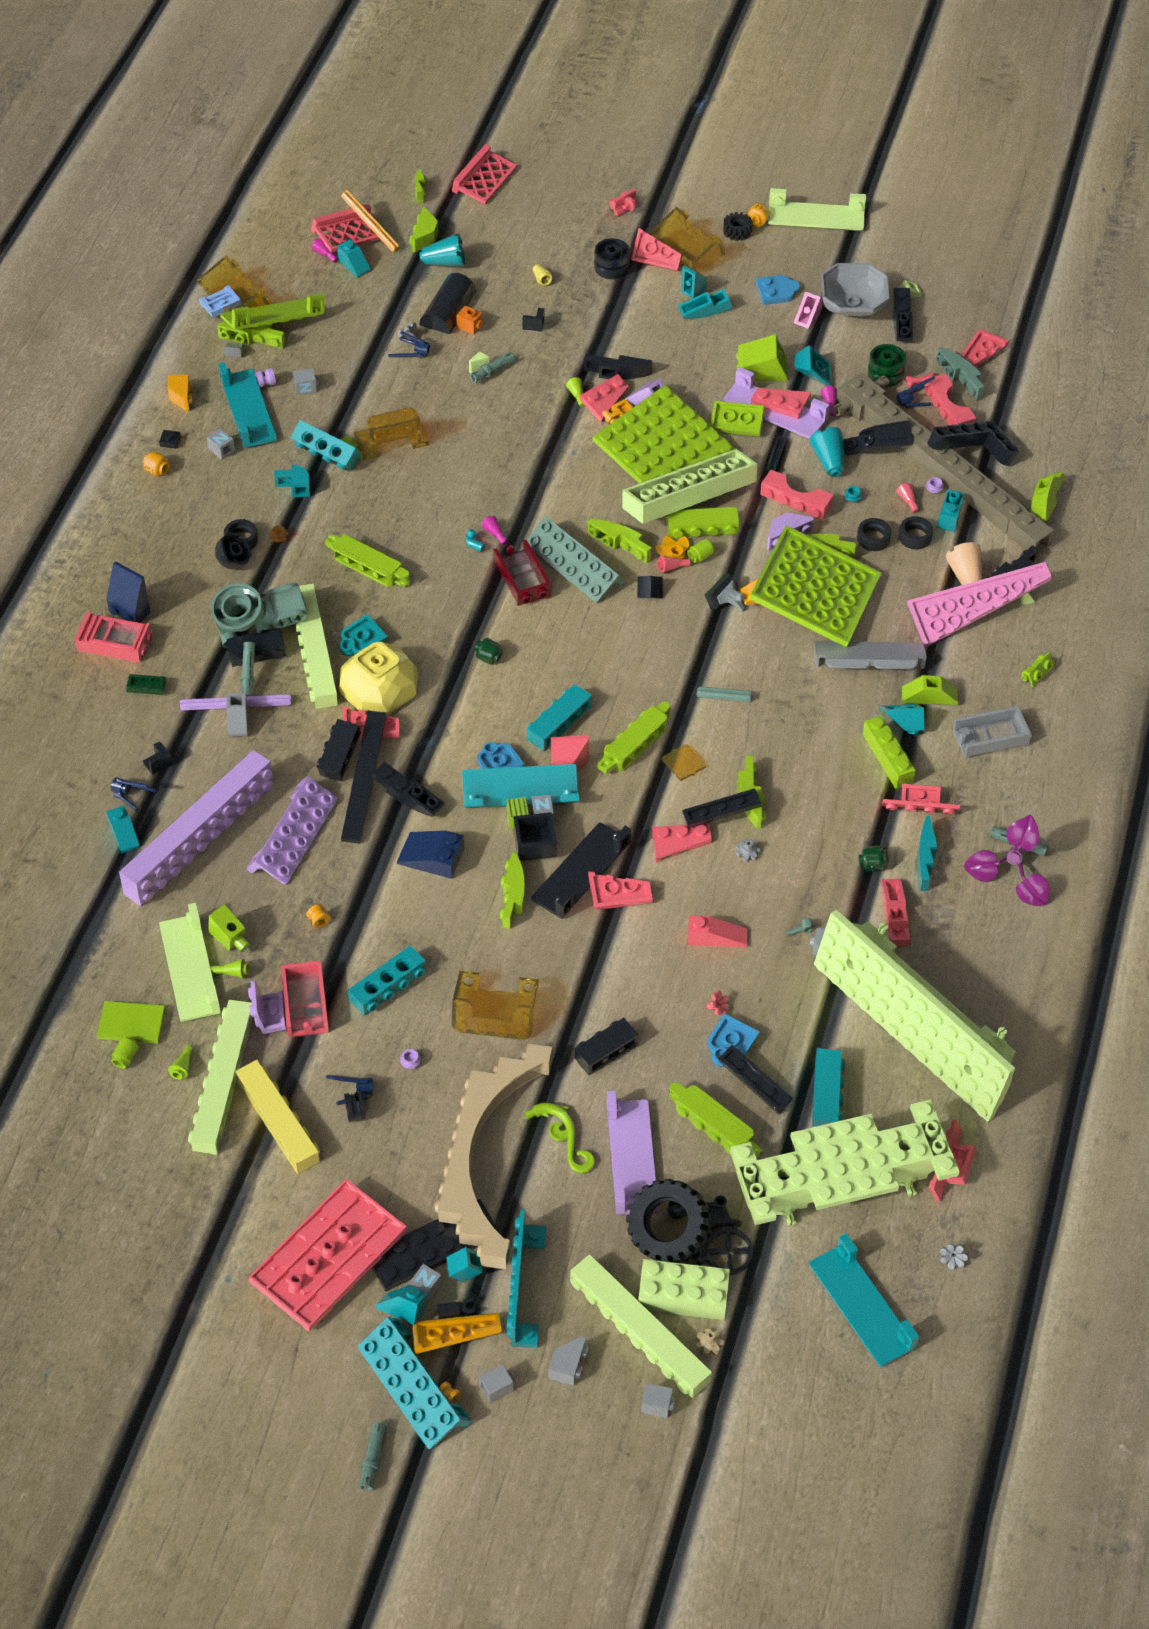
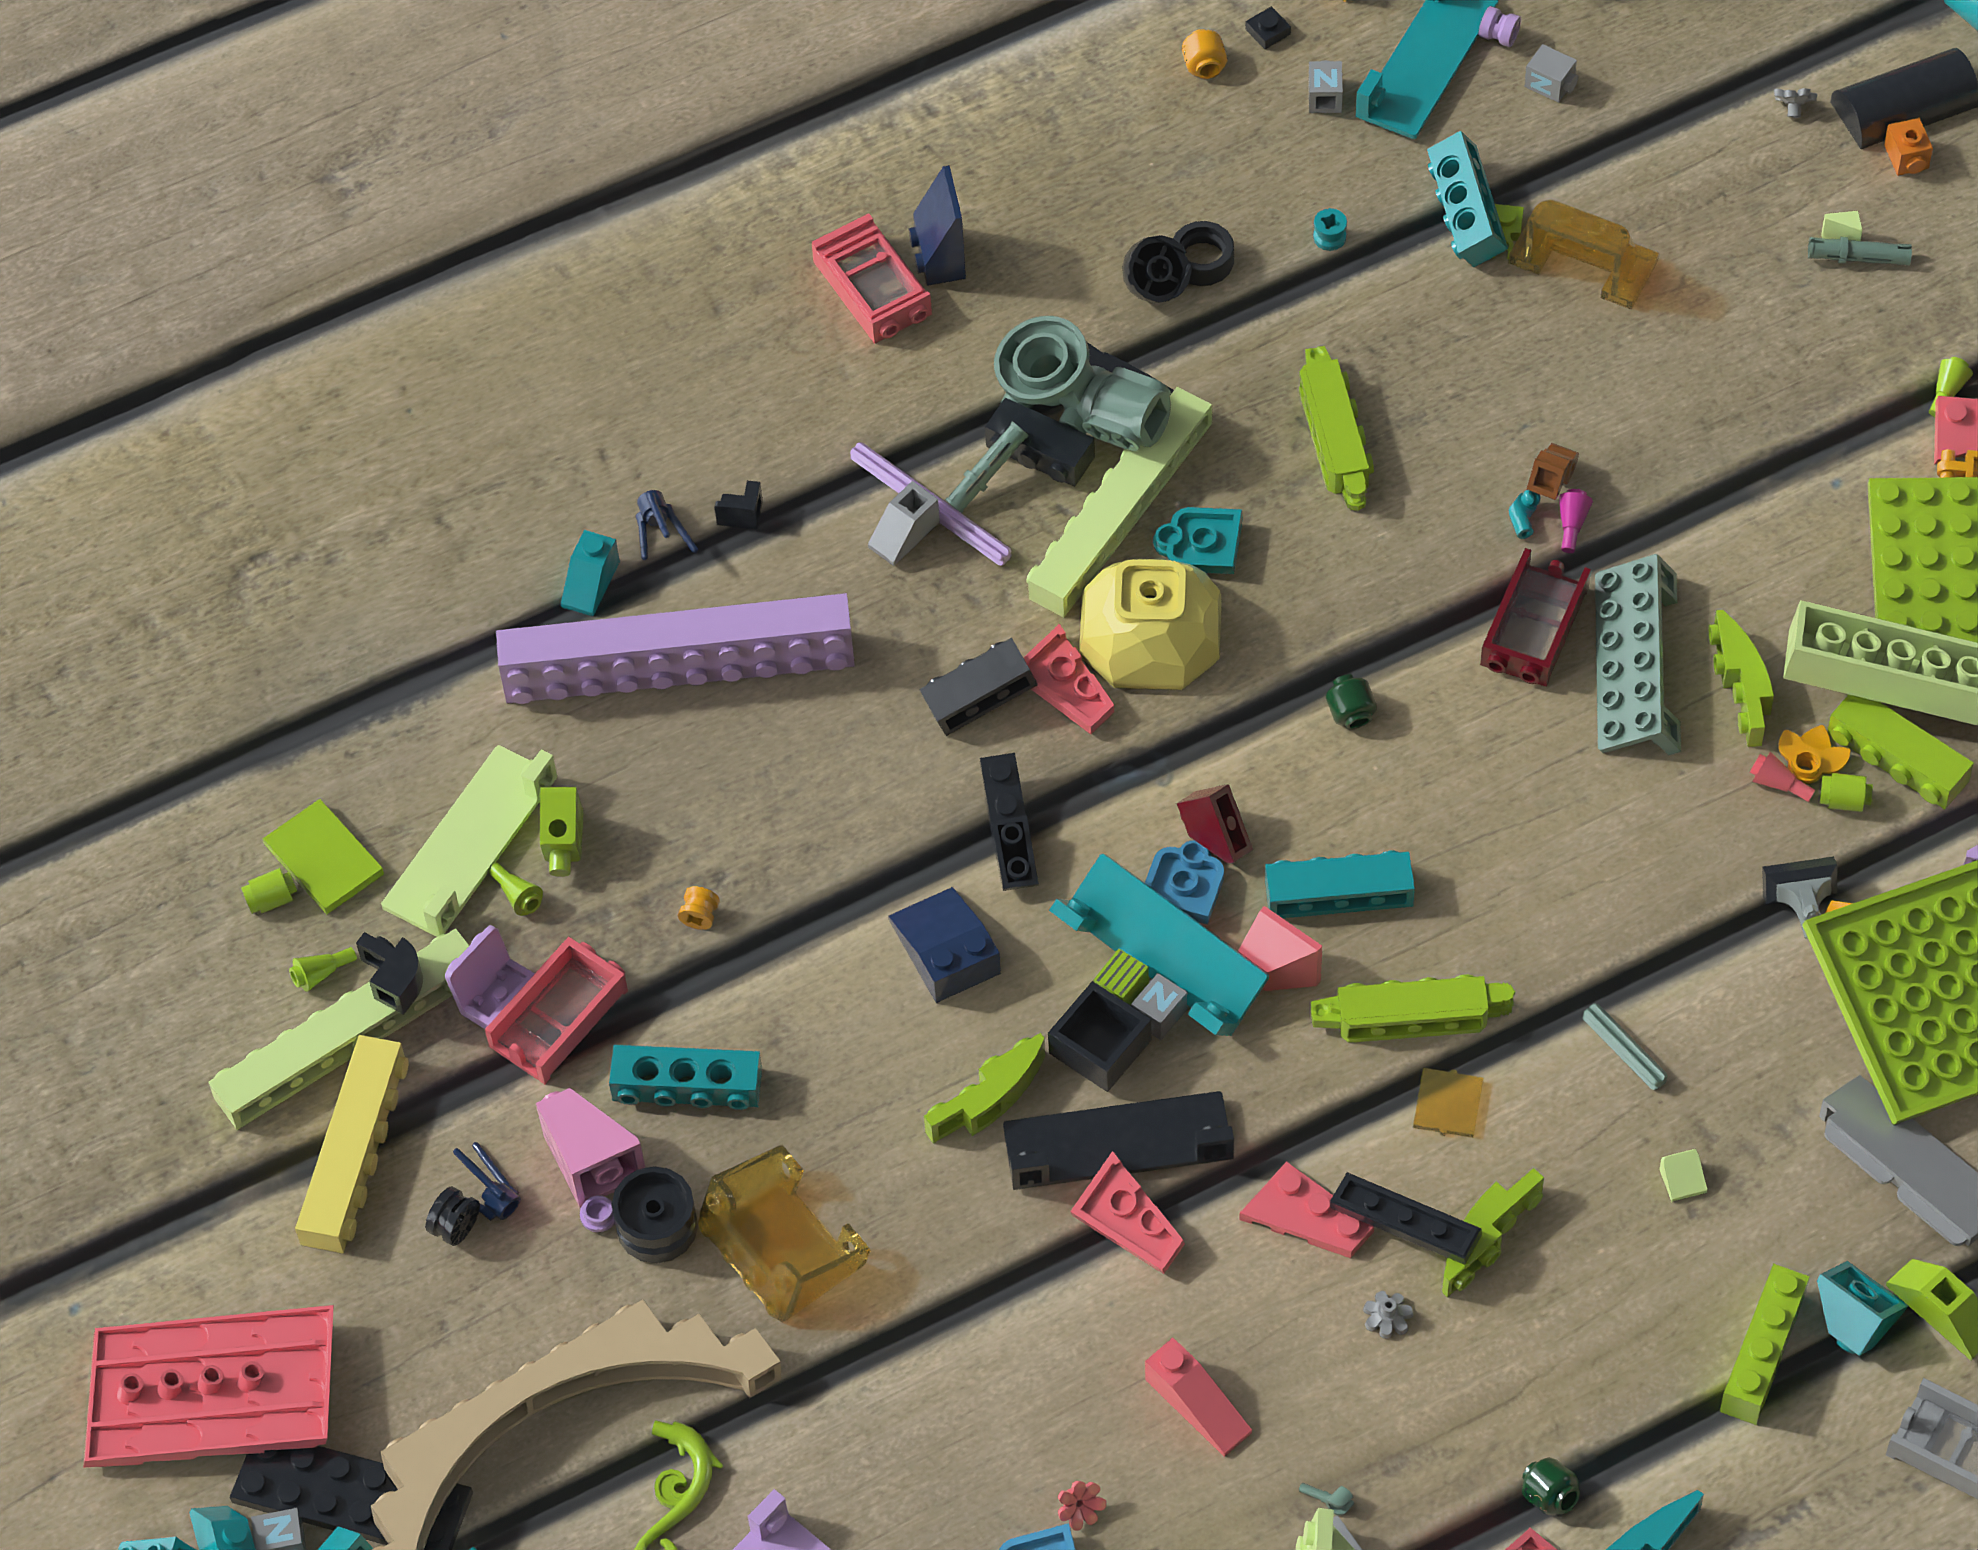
camera: 50 degrees right, 5 degrees up
(146, 684) = (841, 383): dark green plate -> none
(227, 1029) = (397, 973): none -> black brick
(278, 534) = (1258, 290): clear orange plate -> none
(282, 493) = (1331, 238): none -> teal wheel
(294, 831) = (800, 758): lavender bracket -> none
(296, 478) = (1369, 224): teal brick -> none
(363, 779) = (963, 759): black tile -> none
(381, 1034) = (587, 1145): none -> bright pink slope
(421, 347) = (1784, 139): dark blue plant -> none
(437, 1037) = (654, 1214): none -> black wheel
(471, 516) = (1551, 470): none -> dark orange leg
(487, 729) = (1215, 822): none -> dark red slope
(606, 1046) = (861, 1425): black brick -> none
(650, 587) = (1701, 789): black panel -> none
(794, 720) = (1683, 1175): none -> yellowish green slope
(920, 797) = (1732, 1456): coral bracket -> none

